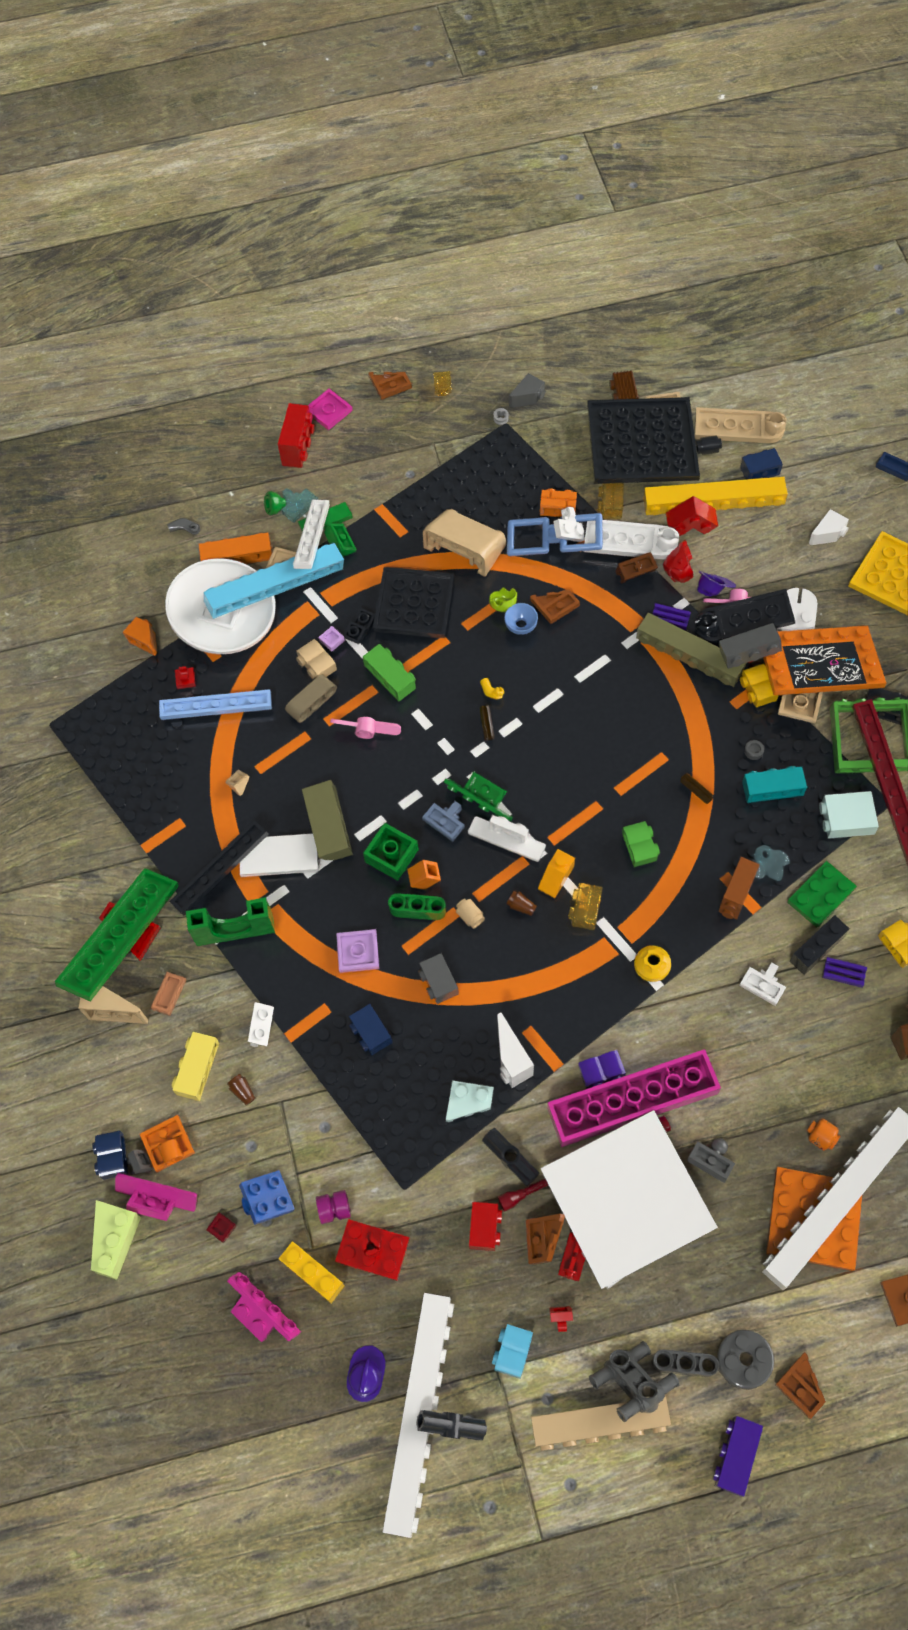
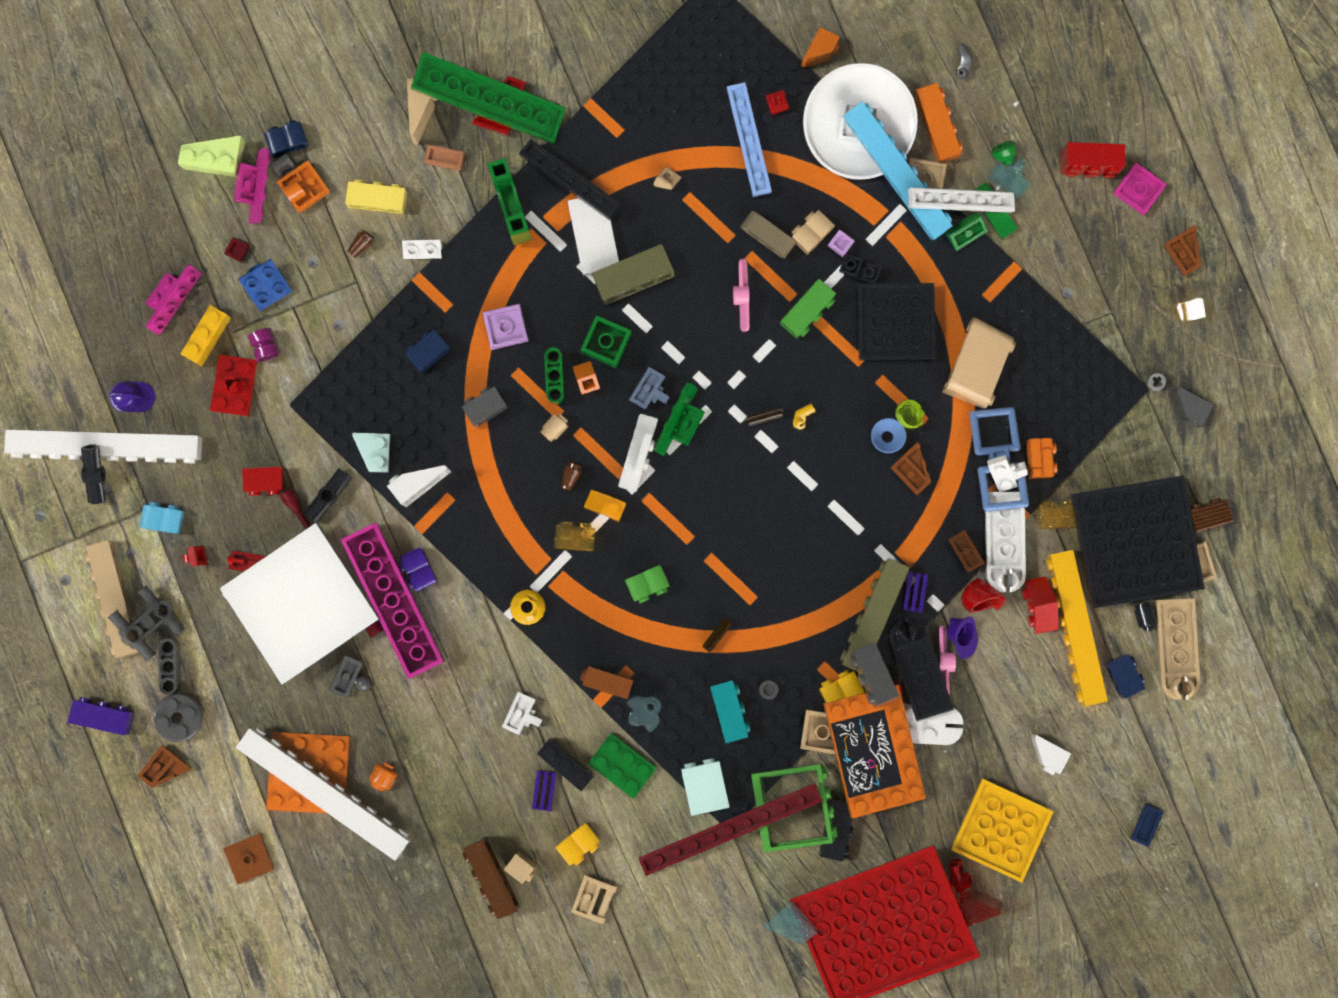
camera: 75 degrees right, 20 degrees up
(543, 1237) = (259, 533): dark orange wing -> none

